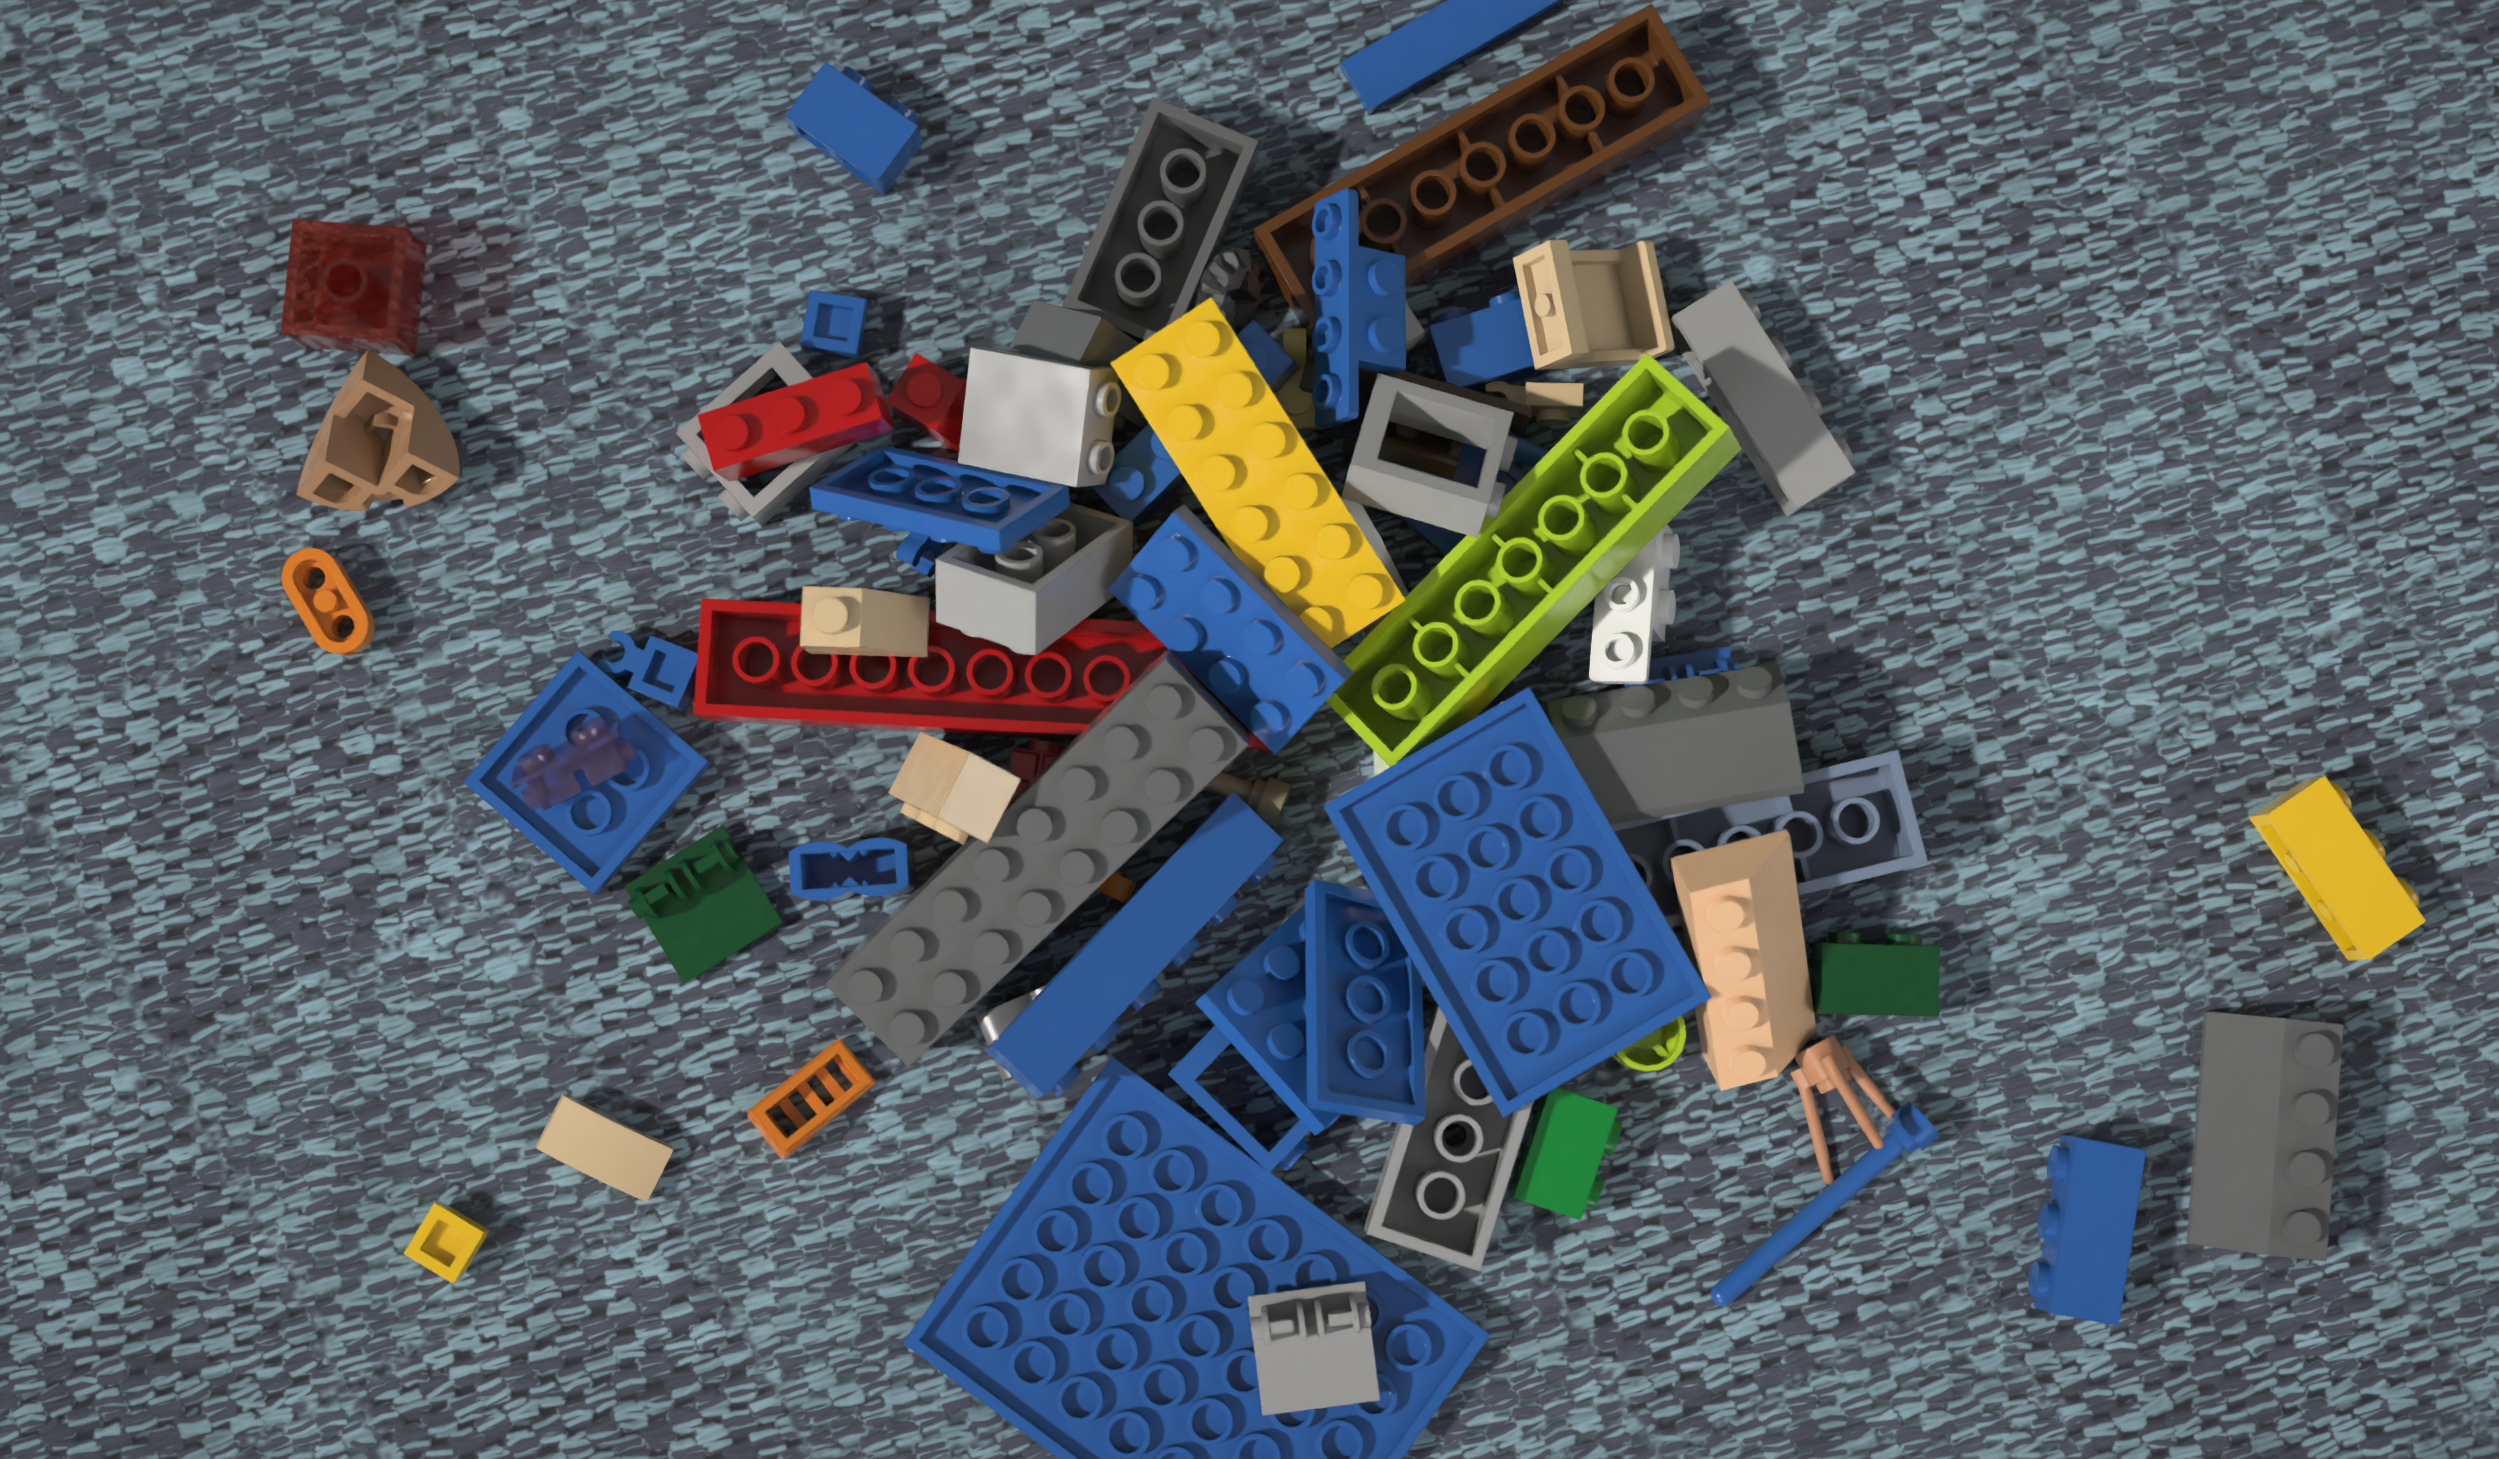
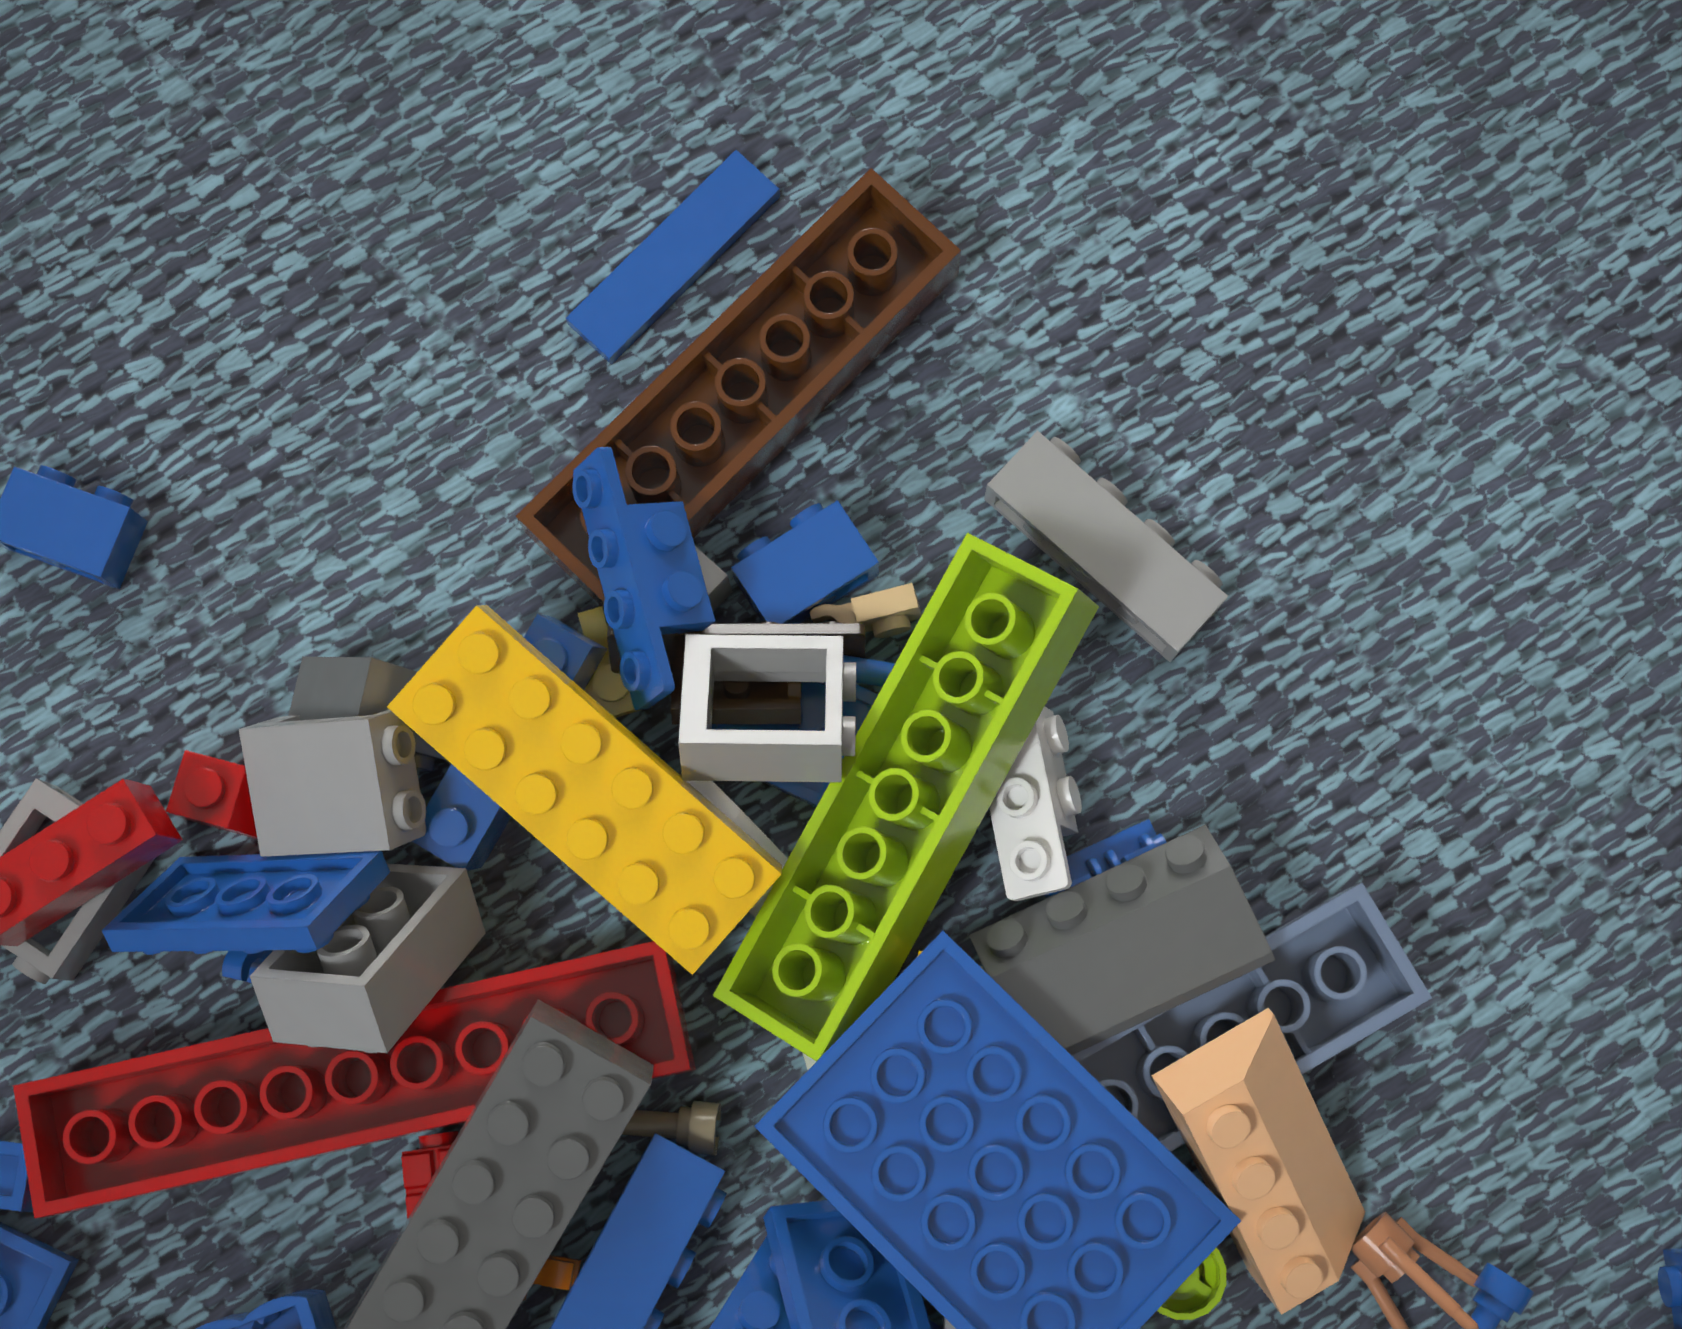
camera: 10 degrees left, 5 degrees down
(834, 324) = (96, 741): blue plate -> none
(864, 622) = (194, 1064): tan slope -> none
(952, 790) = (342, 1223): tan brick -> none
(1163, 221) = (417, 535): dark grey brick -> none
(1228, 271) = (507, 566): dark grey gear -> none
(1230, 629) = (599, 959): blue plate -> none
(1592, 305) = (898, 498): tan panel -> none
(1875, 978) = (1412, 1136): dark green brick -> none

